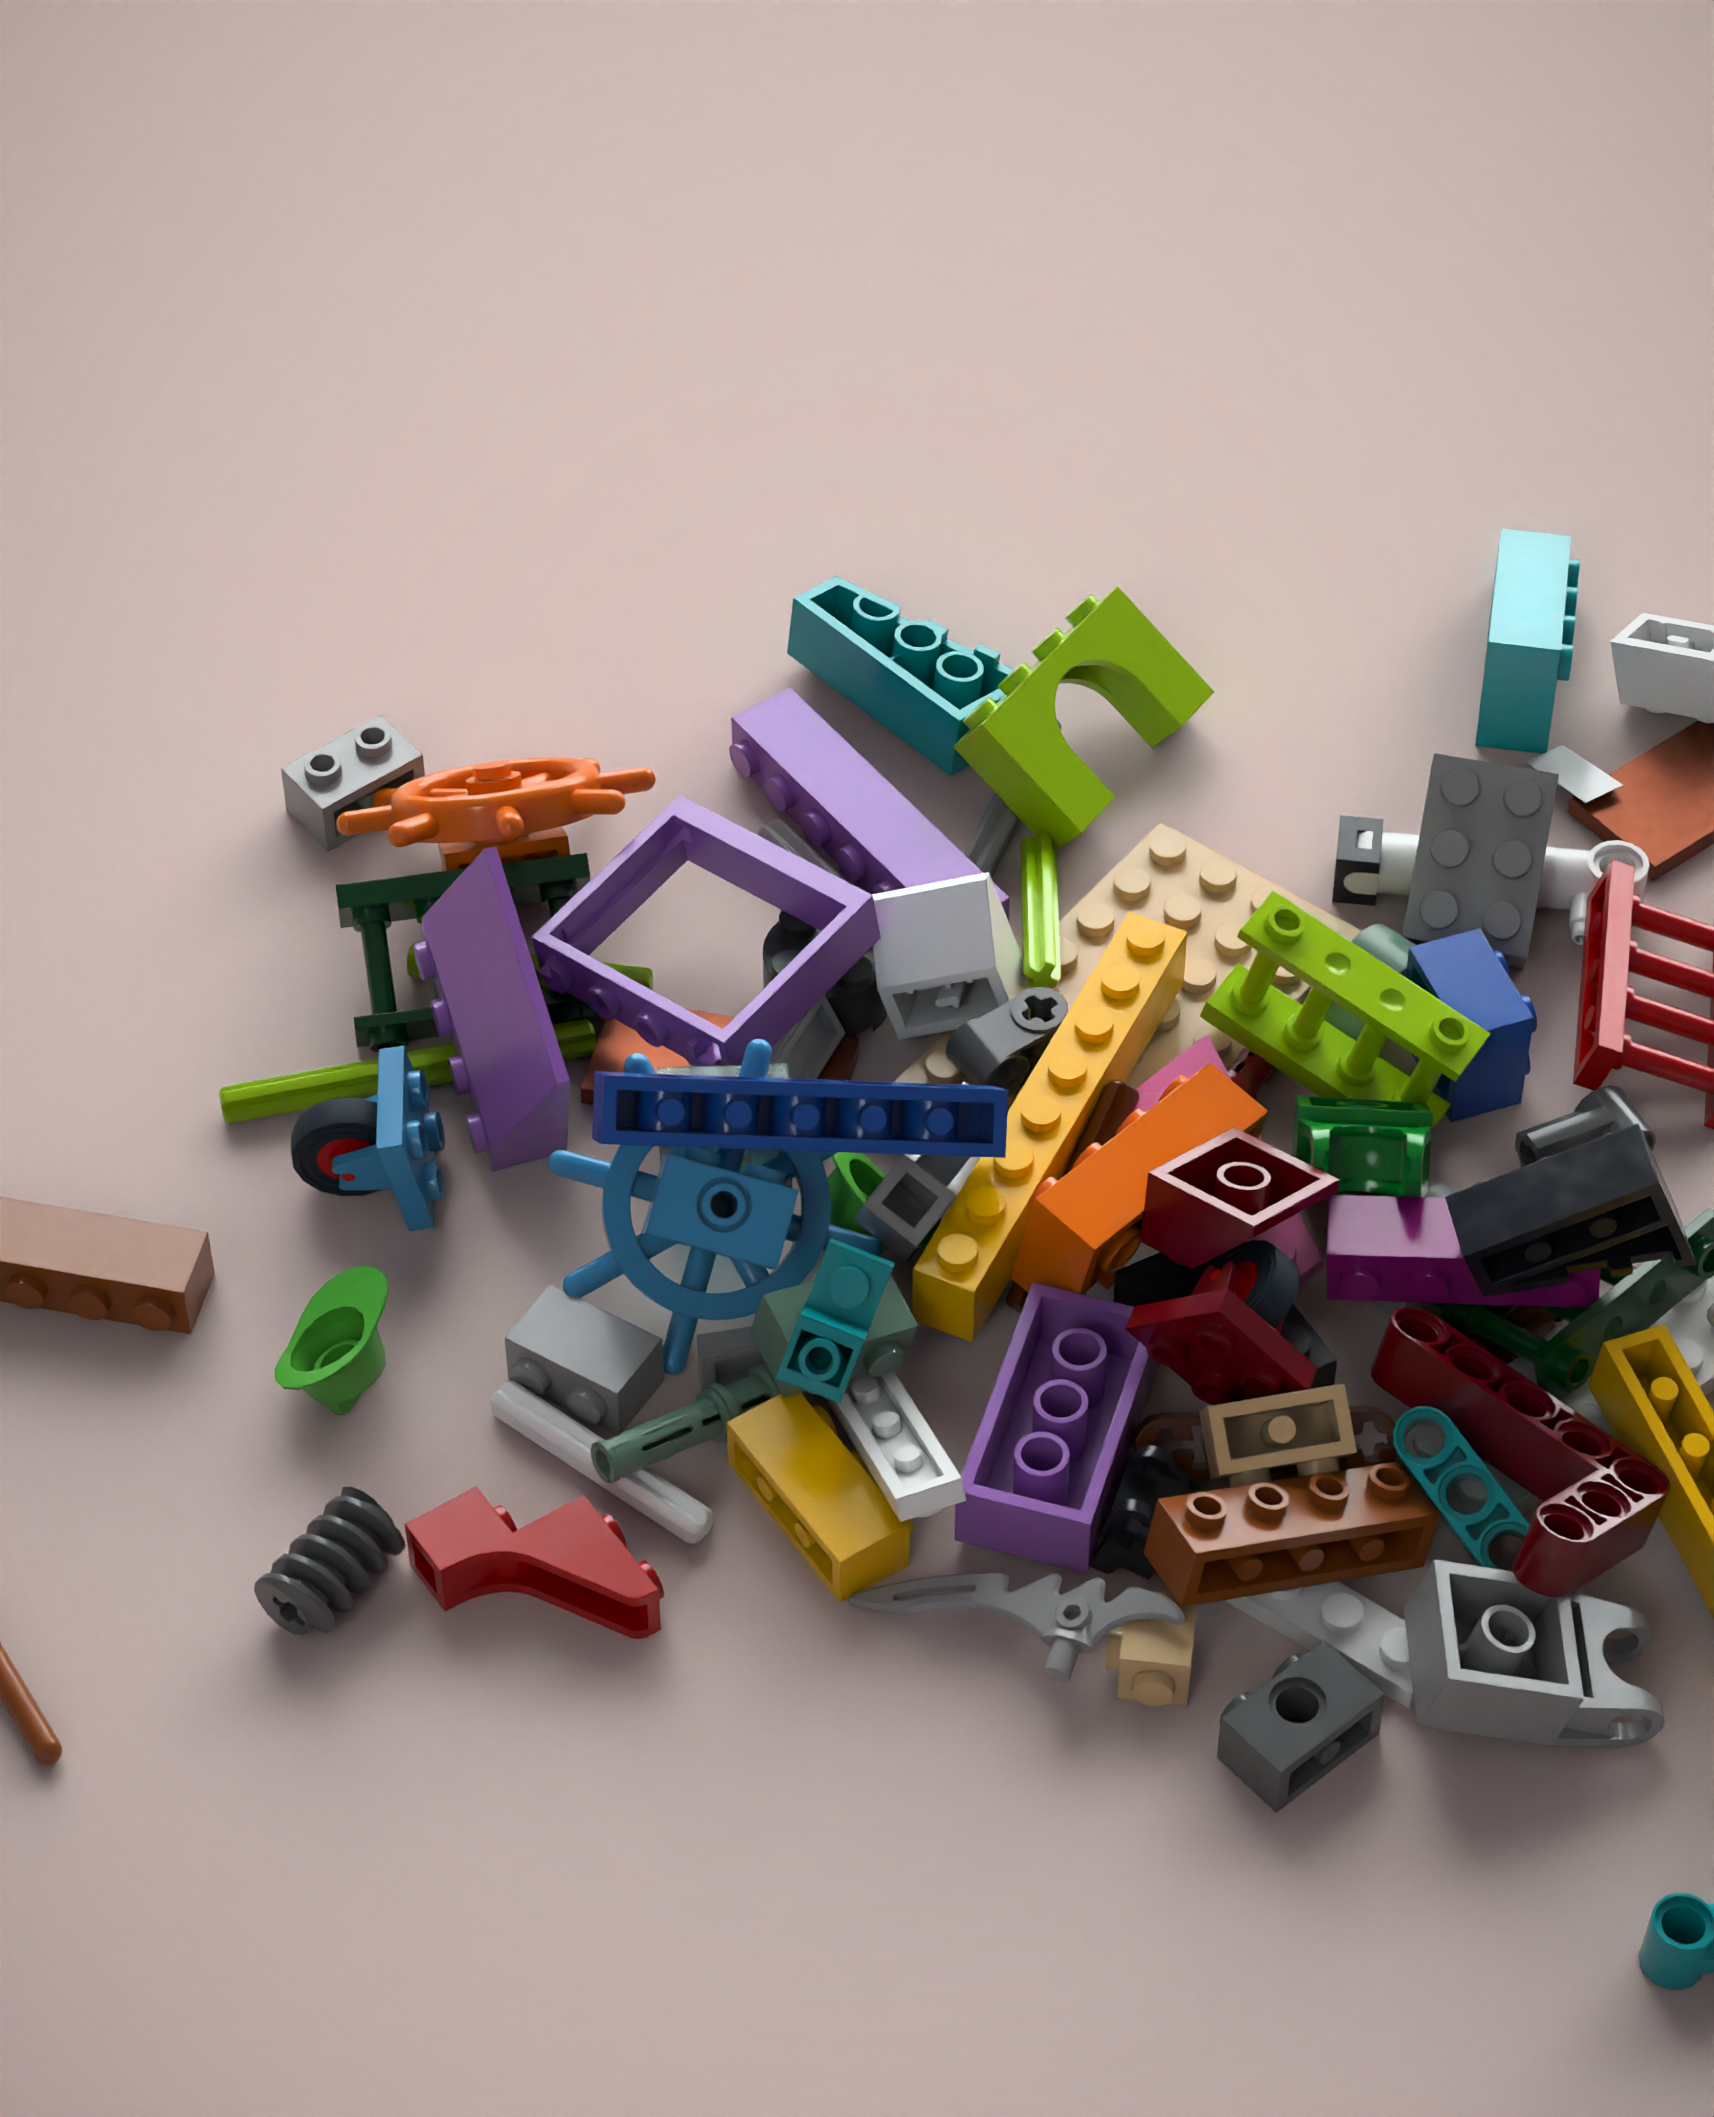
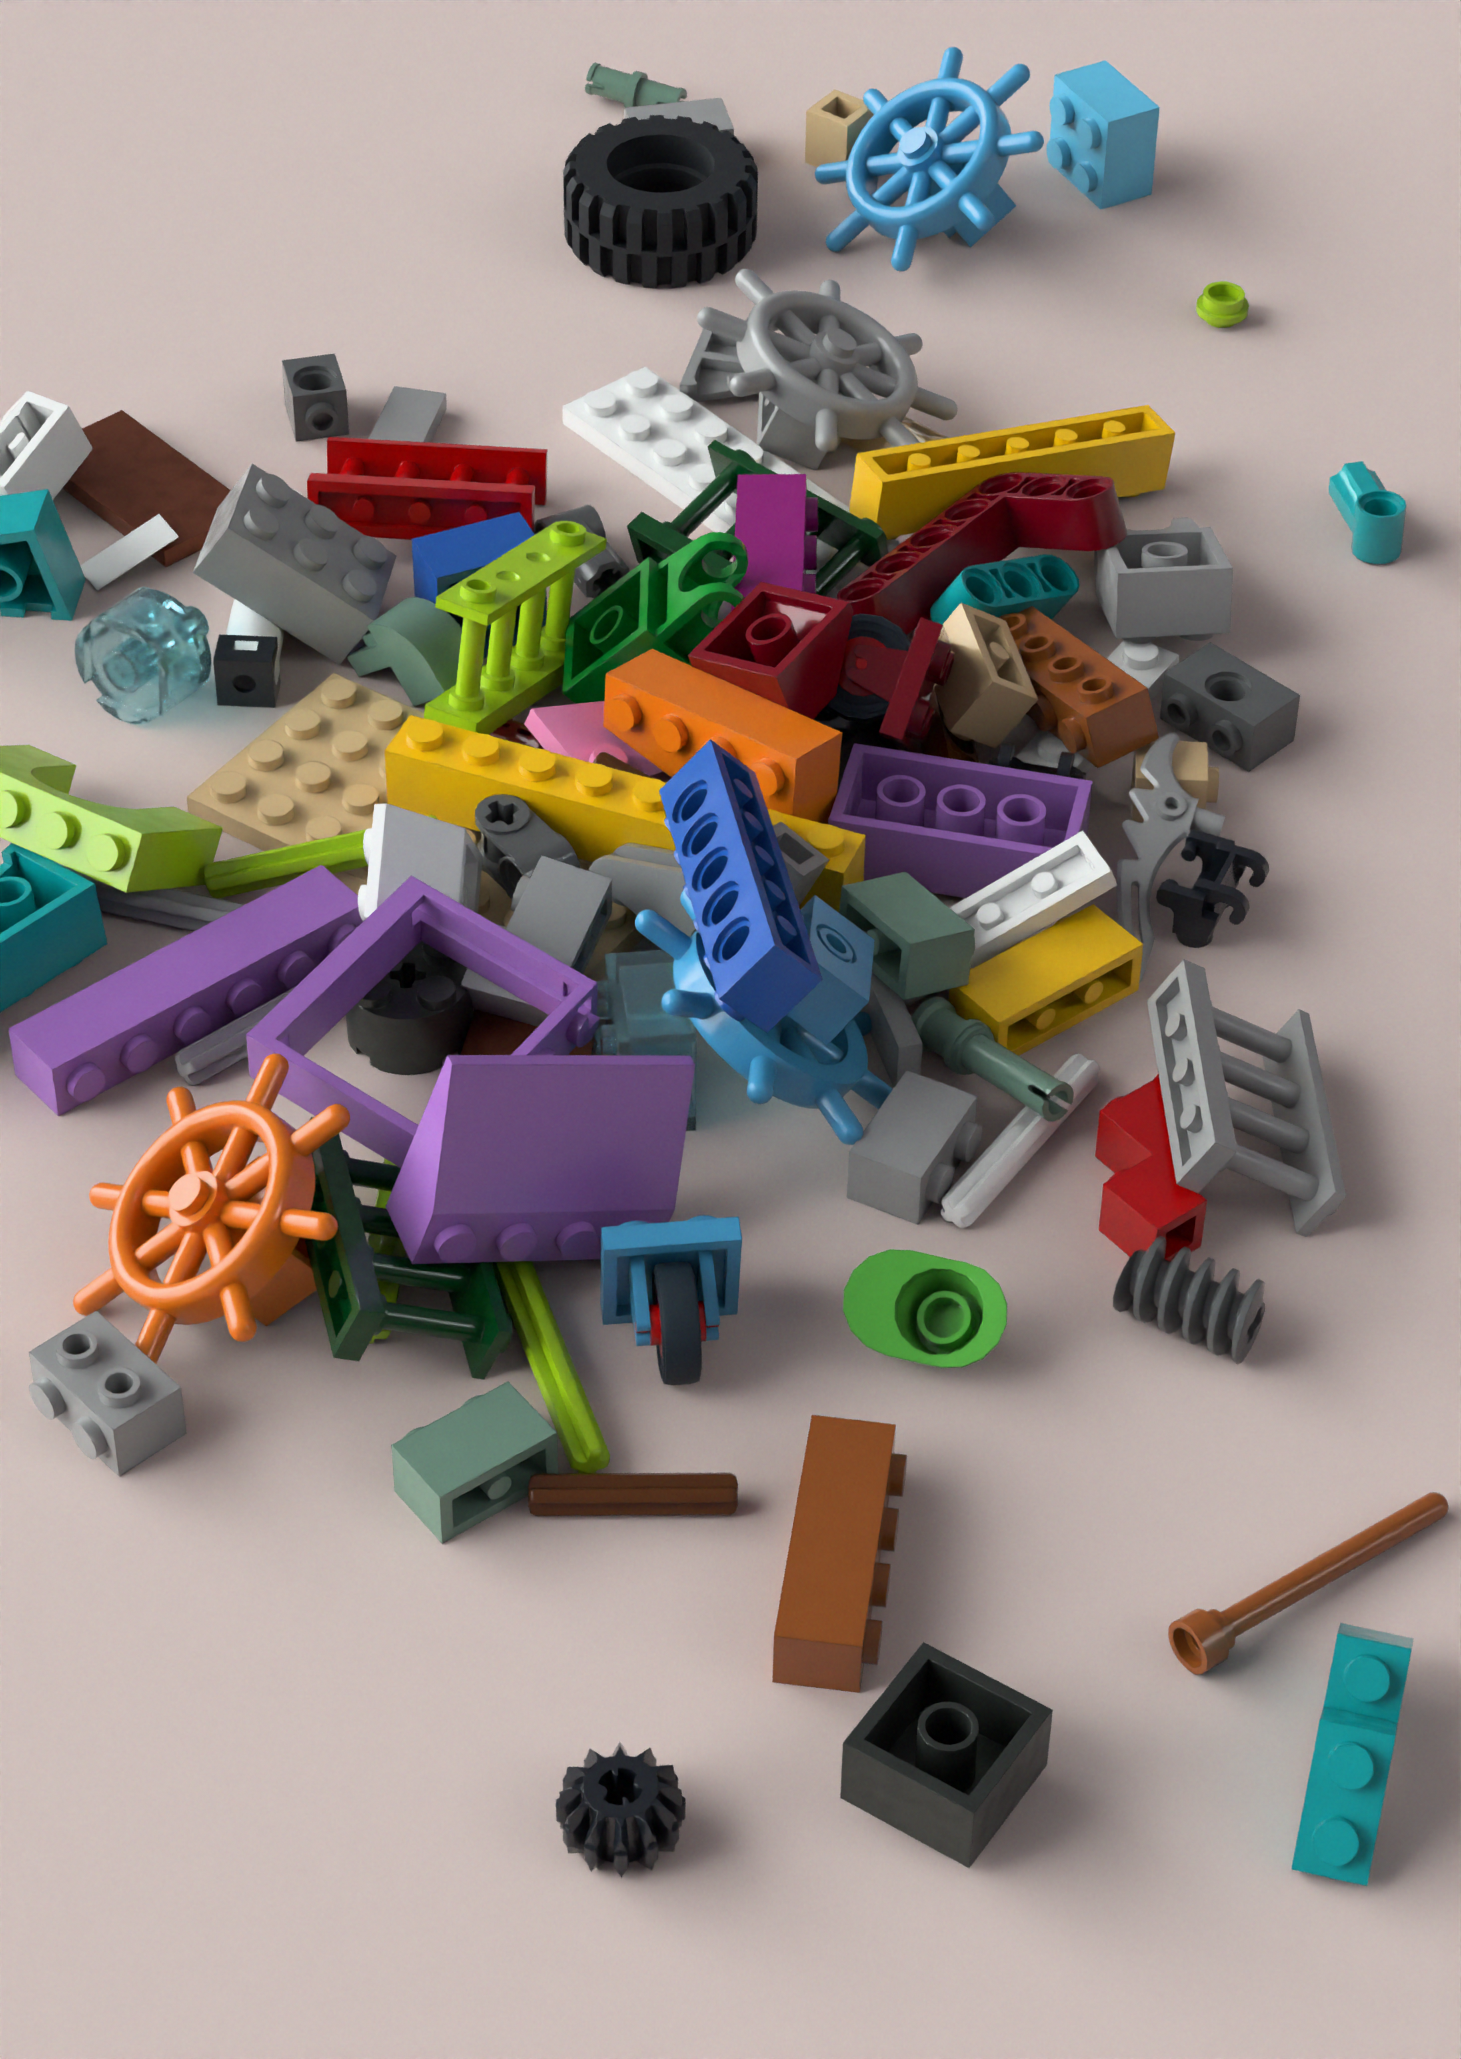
camera: 95 degrees left, 5 degrees down
(183, 1135) = (632, 1494): none -> reddish brown axle
(230, 1016) = (473, 1461): none -> sand green brick
(553, 1563) = (1203, 1116): none -> light grey fence
(835, 1320) = (963, 901): teal slope -> none
(873, 1045) = (561, 911): none -> light grey brick
(981, 1678) = (1215, 889): none -> black piece
(1352, 764) = (144, 655): none -> clear light blue brick
(1570, 1215) = (793, 455): black wedge -> none

